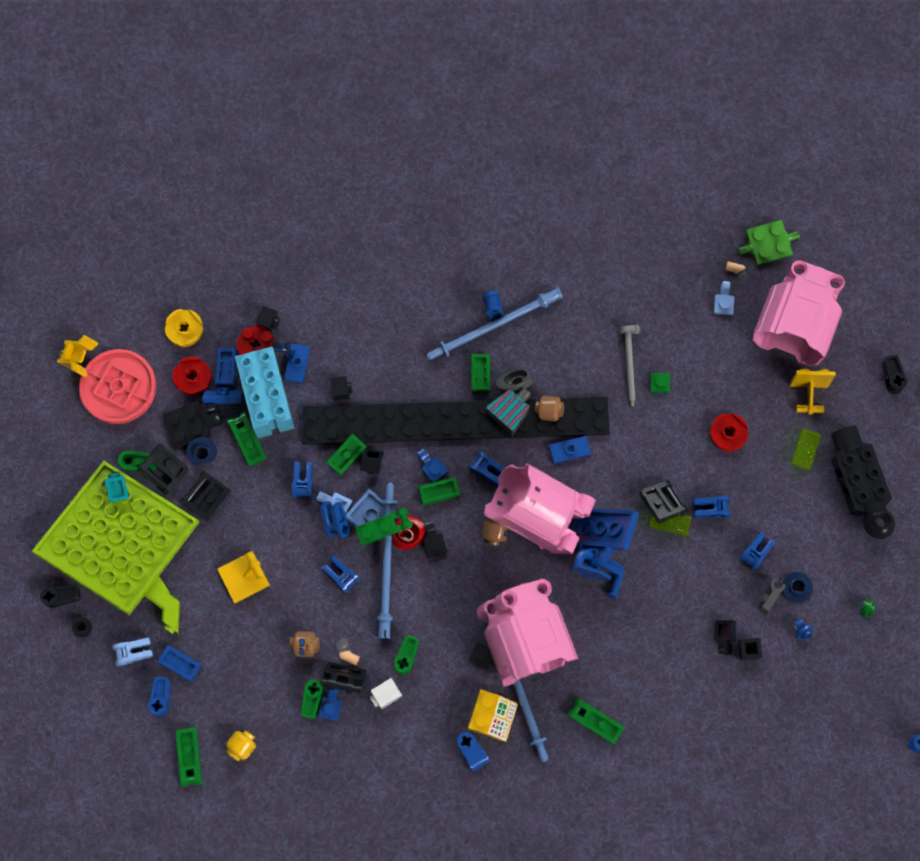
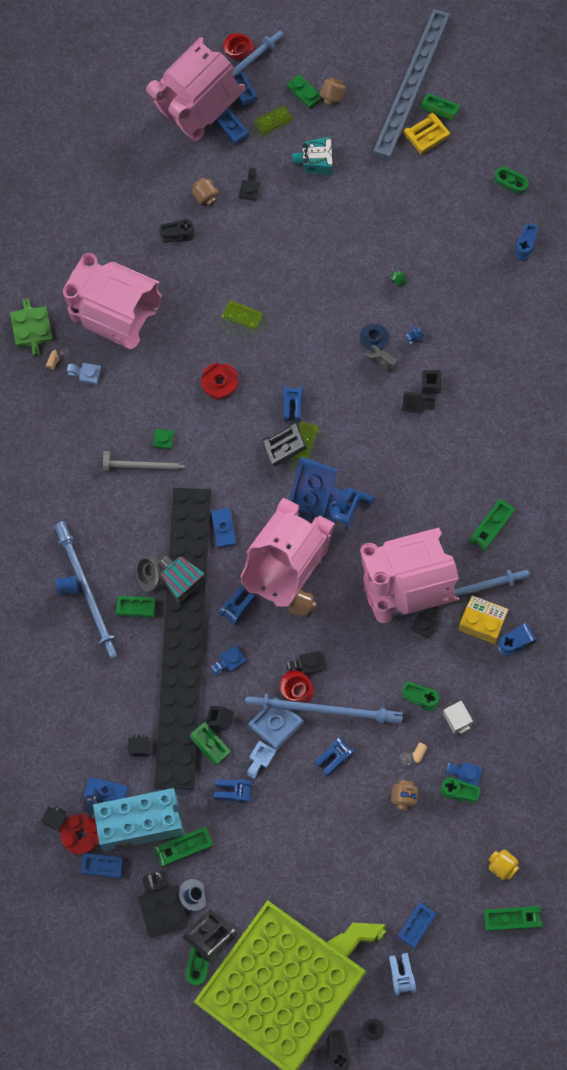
camera: 80 degrees left, 5 degrees down
(75, 352) = (71, 1030): yellow piece -> none
(116, 487) = (226, 984): teal bracket -> none
(117, 386) = (112, 985): coral plate -> none
(160, 693) = (446, 945): blue piece -> none
(184, 317) = (41, 909): yellow plate -> none
(189, 386) = (100, 895): red plate -> none
(210, 498) = (245, 888): black plate -> none
(223, 396) = (135, 869): blue plate -> none
(243, 577) = (330, 854): yellow plate -> none
(334, 520) = (282, 756): blue piece -> none
(343, 678) = (435, 762): black plate -> none
(383, 527) = (291, 708): green plate -> none
(439, 491) = (256, 655): green plate -> none
(549, 408) = (182, 539): medium nougat head -> none
(752, 556) = (343, 369): blue piece -> none
(811, 379) = (176, 303): yellow plate -> none
(862, 481) = (279, 268): black brick -> none

